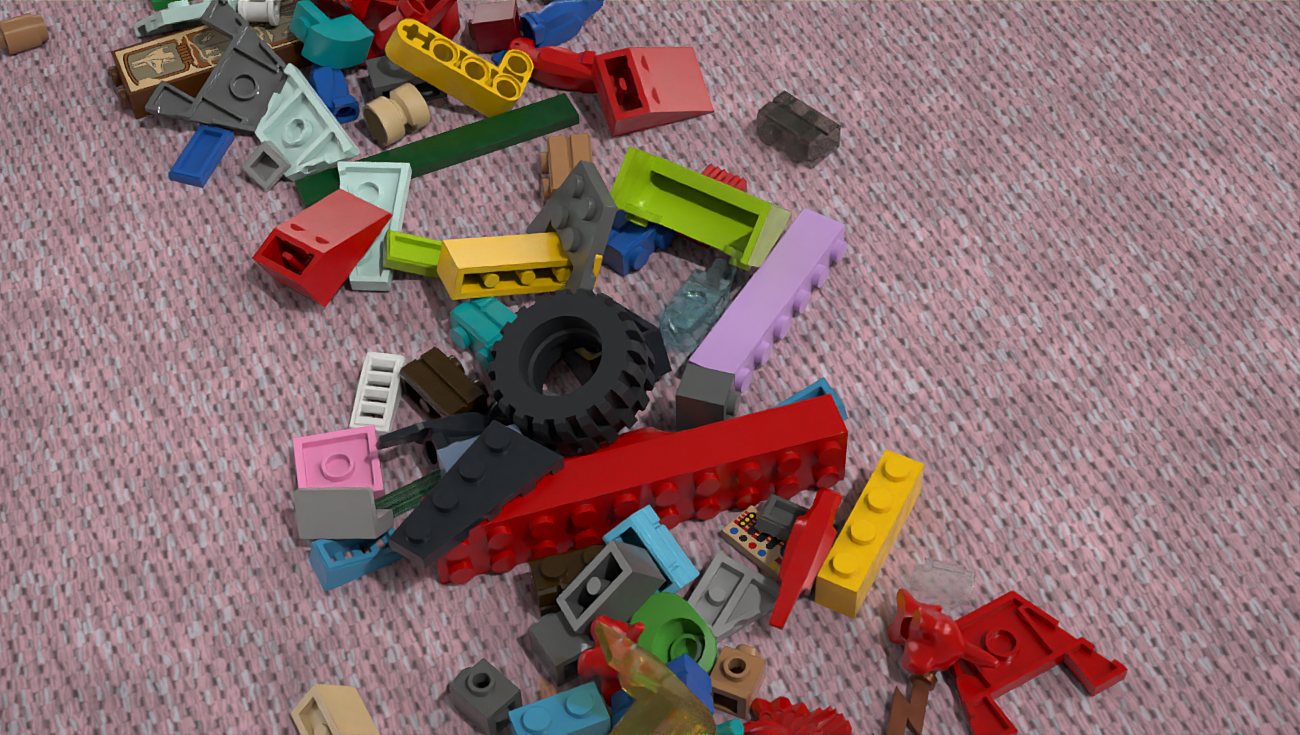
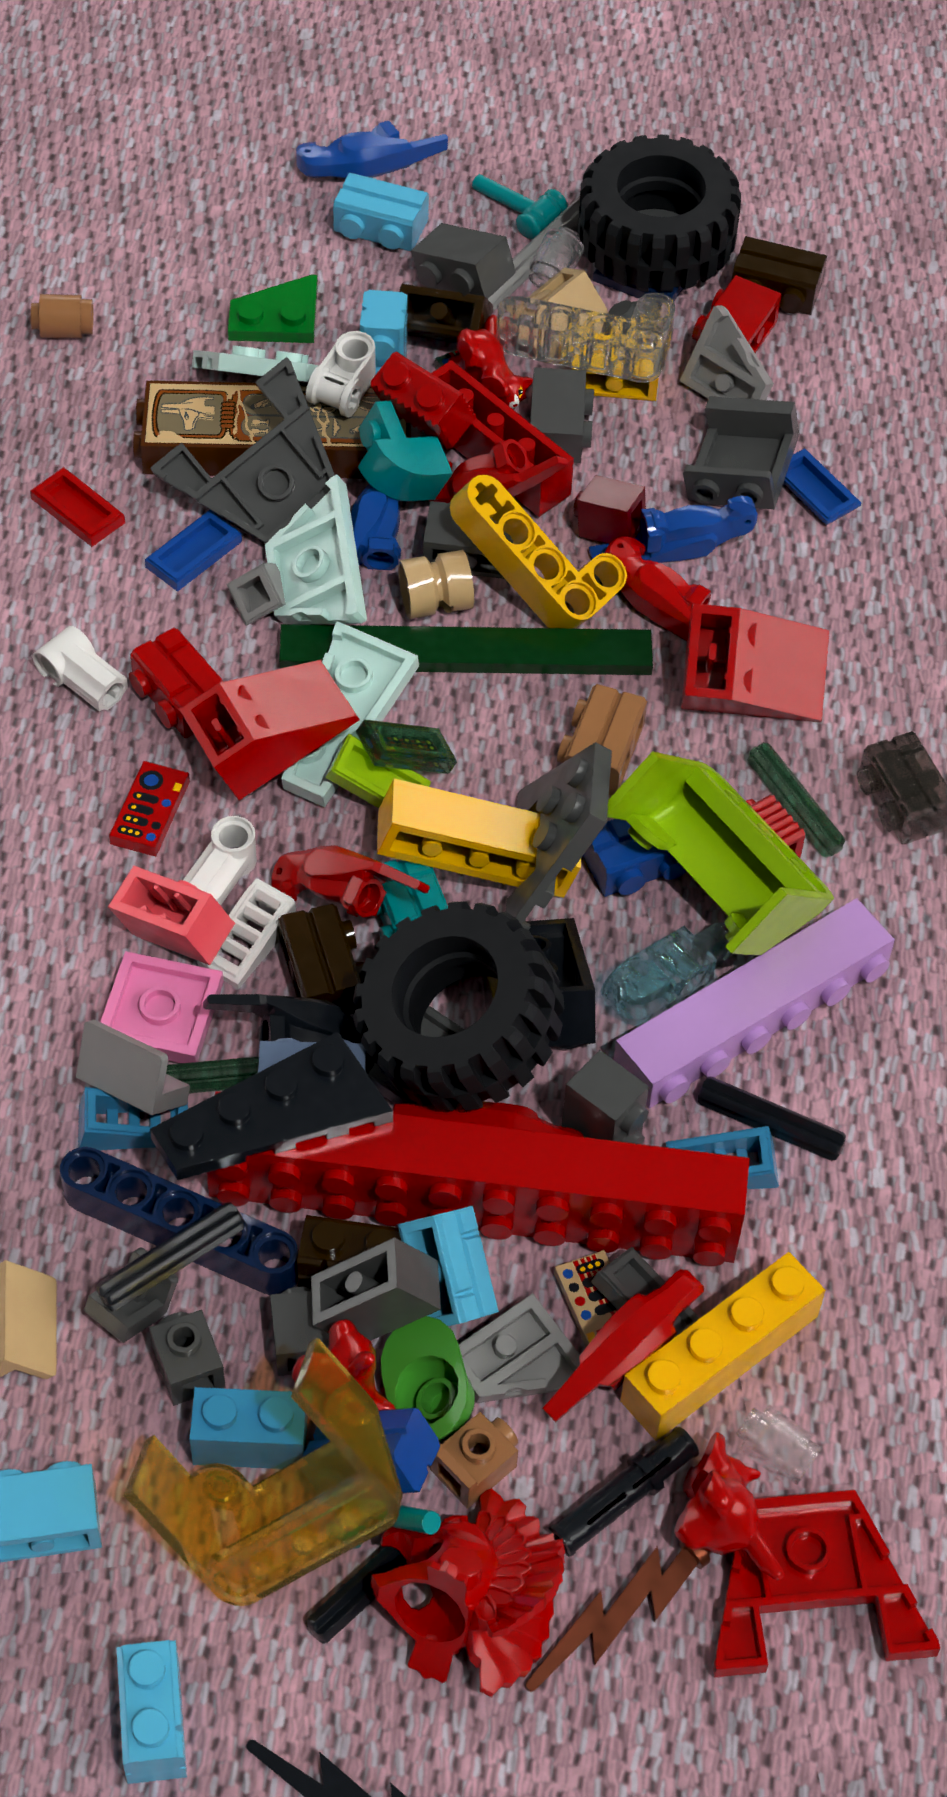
camera: 20 degrees right, 5 degrees up
(97, 156) = (77, 506): none -> red tile
(149, 258) = (73, 661): none -> white piece
(231, 243) = (171, 676): none -> red brick
(258, 338) = (149, 808): none -> red tile
(317, 398) = (172, 914): none -> coral brick
(334, 355) = (221, 866): none -> white piece
(412, 597) = (167, 1201): none -> dark blue beam
(425, 671) = (136, 1314): none -> dark grey bracket
(431, 226) = (406, 746): none -> clear green tile
(432, 326) = (339, 878): none -> red animal
(441, 629) = (170, 1256): none -> black axle
(704, 155) = (796, 799): none -> clear green axle
(807, 373) = (781, 1121): none -> black axle
(860, 644) = (642, 1476): none -> black pin

